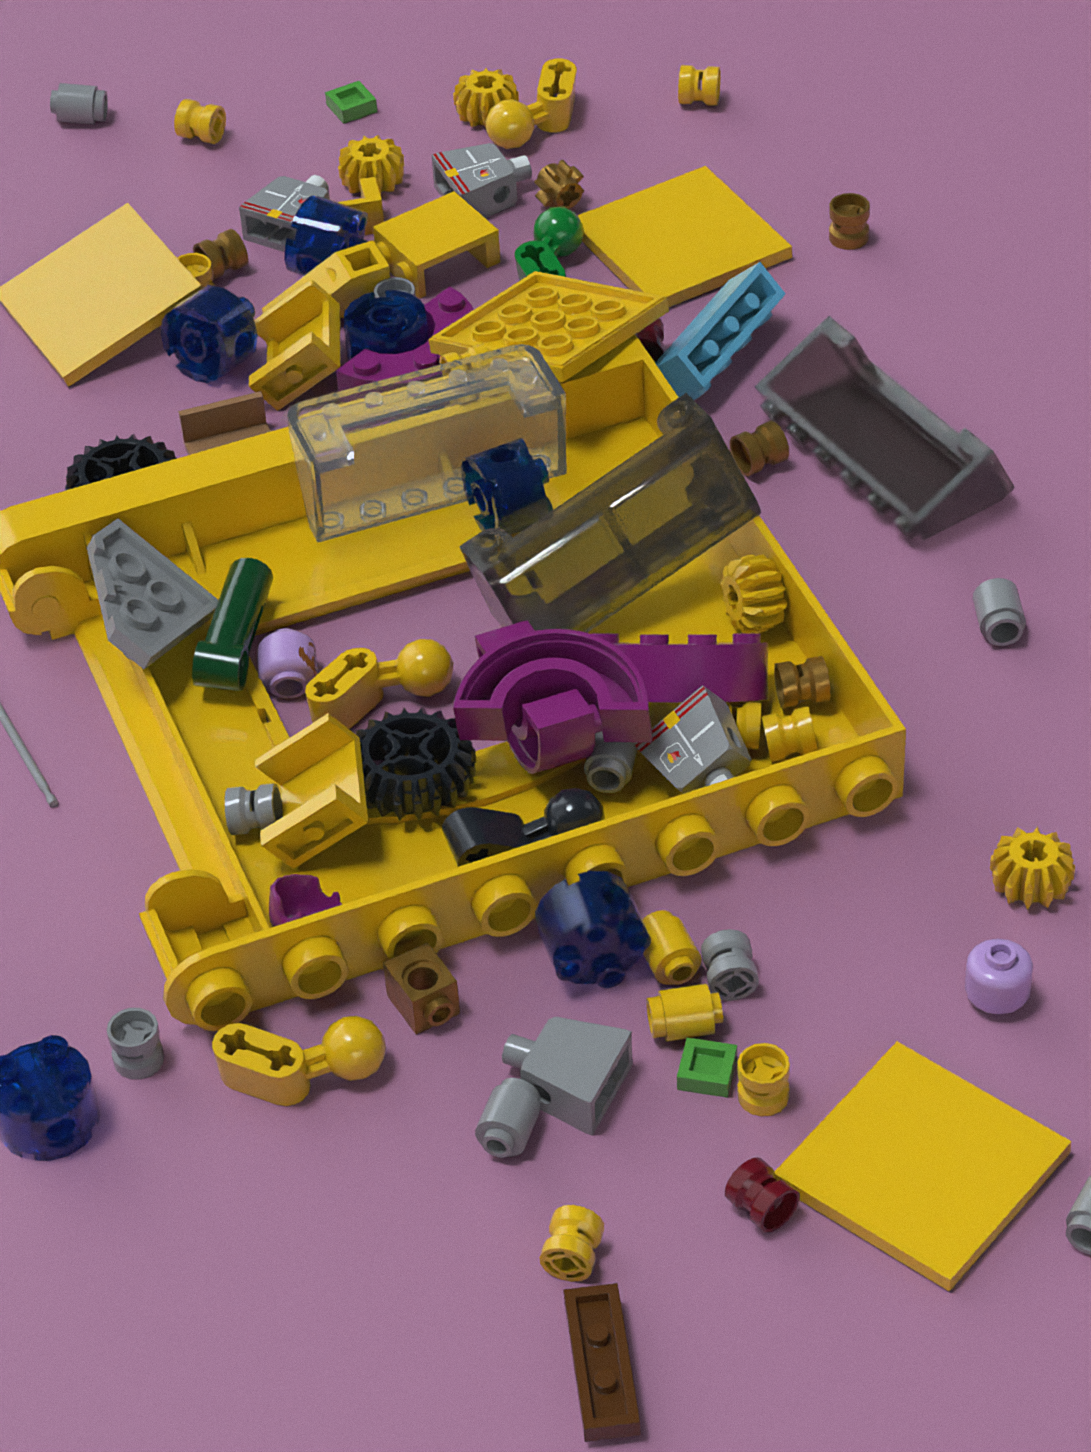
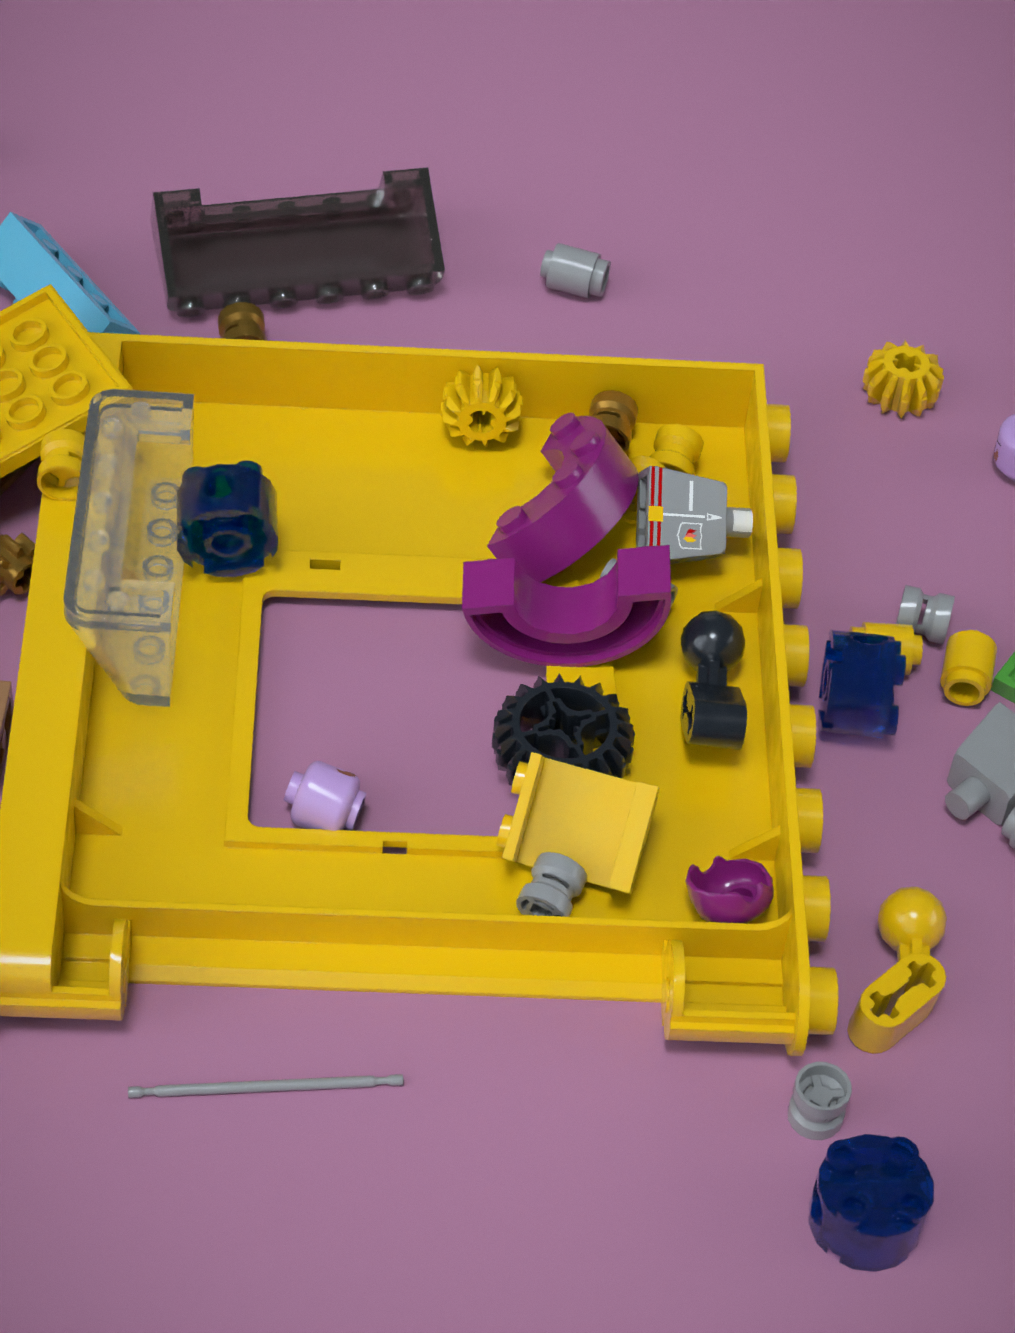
camera: 75 degrees left, 5 degrees up
(144, 595) = (201, 864): light grey plate -> none
(224, 654) = (311, 840): dark green piece -> none
(356, 679) = (393, 752): yellow beam -> none
(421, 988) = (854, 844): pearl gold brick -> none
(547, 665) = (583, 539): magenta brick -> none
(618, 531) = (402, 550): clear smoke windscreen -> none

